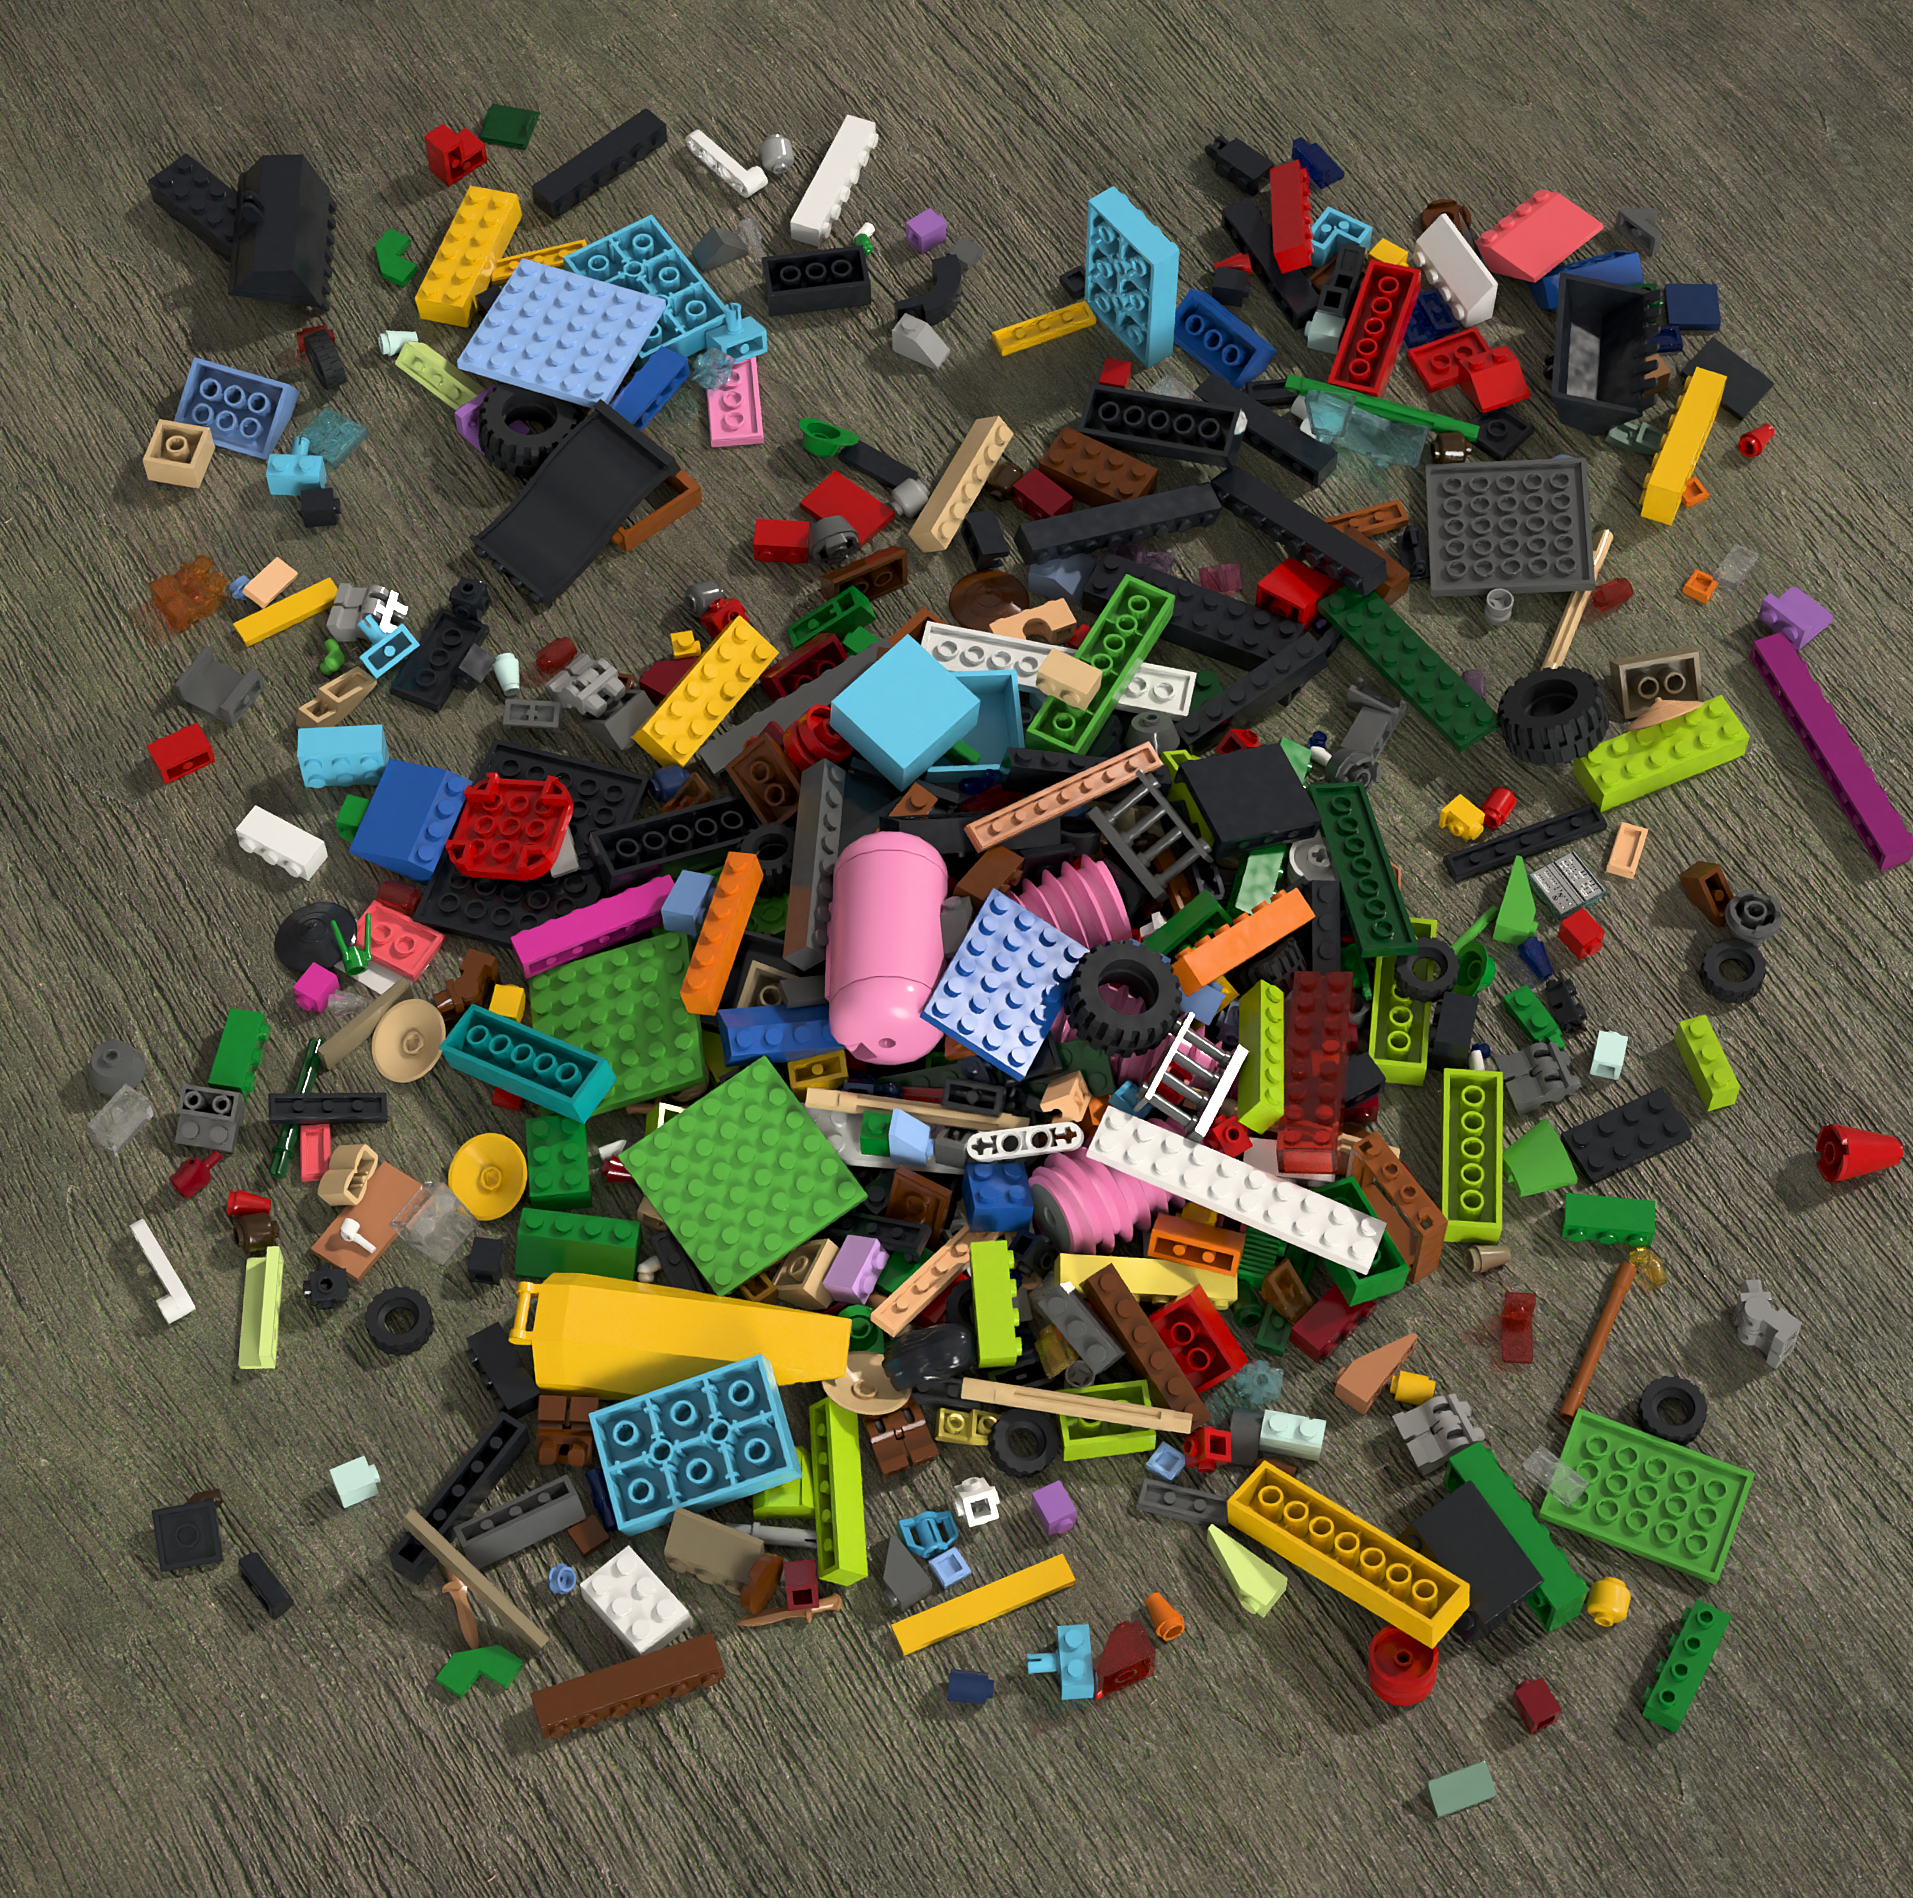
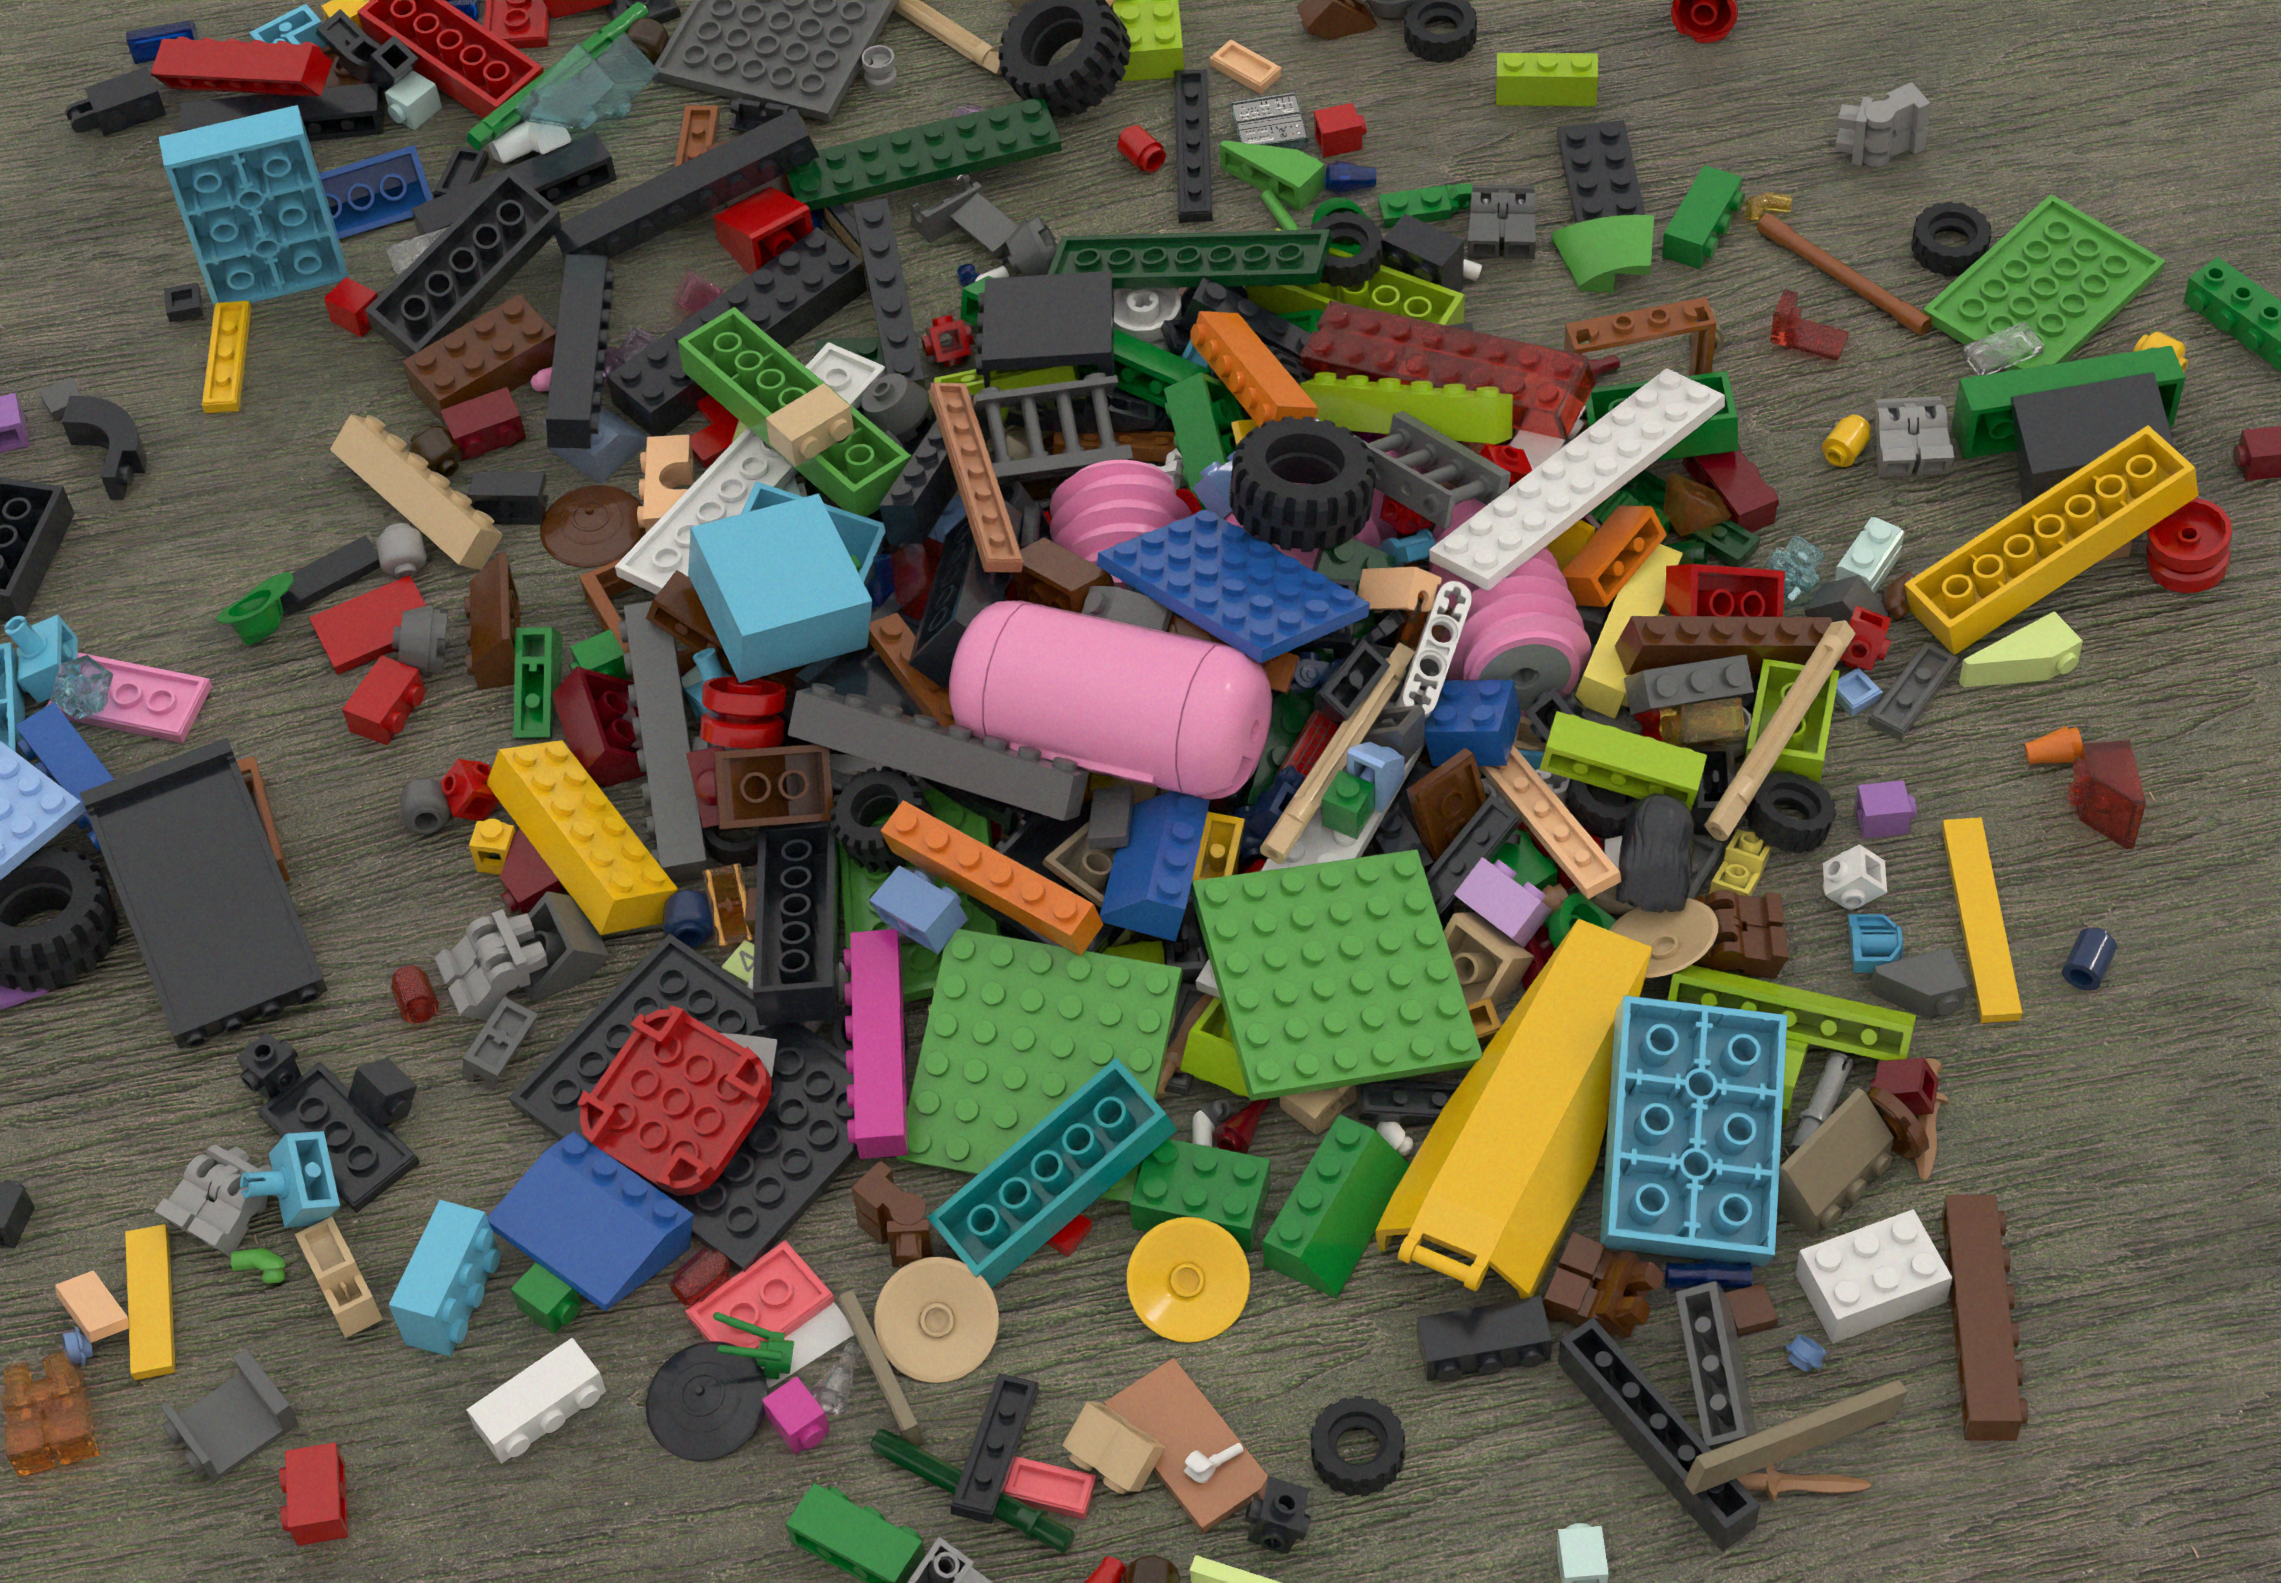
camera: 65 degrees left, 5 degrees down
(435, 1222) = (1226, 1363): clear slope -> none
(466, 1666) = (1893, 1501): green tile -> none
(485, 1261) = (1310, 1316): black panel -> none
(507, 672) = (413, 1057): light aqua cone -> none
(508, 1002) = (933, 1184): yellow brick -> none
(919, 342) = (170, 478): light grey slope -> none
(949, 1568) = (1921, 937): light blue tile -> none
(1070, 1660) = (2090, 848): medium azure brick -> none
(1371, 1373) = (1819, 474): nougat slope -> none
(1462, 818) = (1141, 180): yellow brick -> none
(1471, 1155) = (1557, 288): lime brick -> none
(1571, 1013) = (1403, 167): black hinge -> none
(1608, 1055) = (1500, 154): light aqua brick -> none

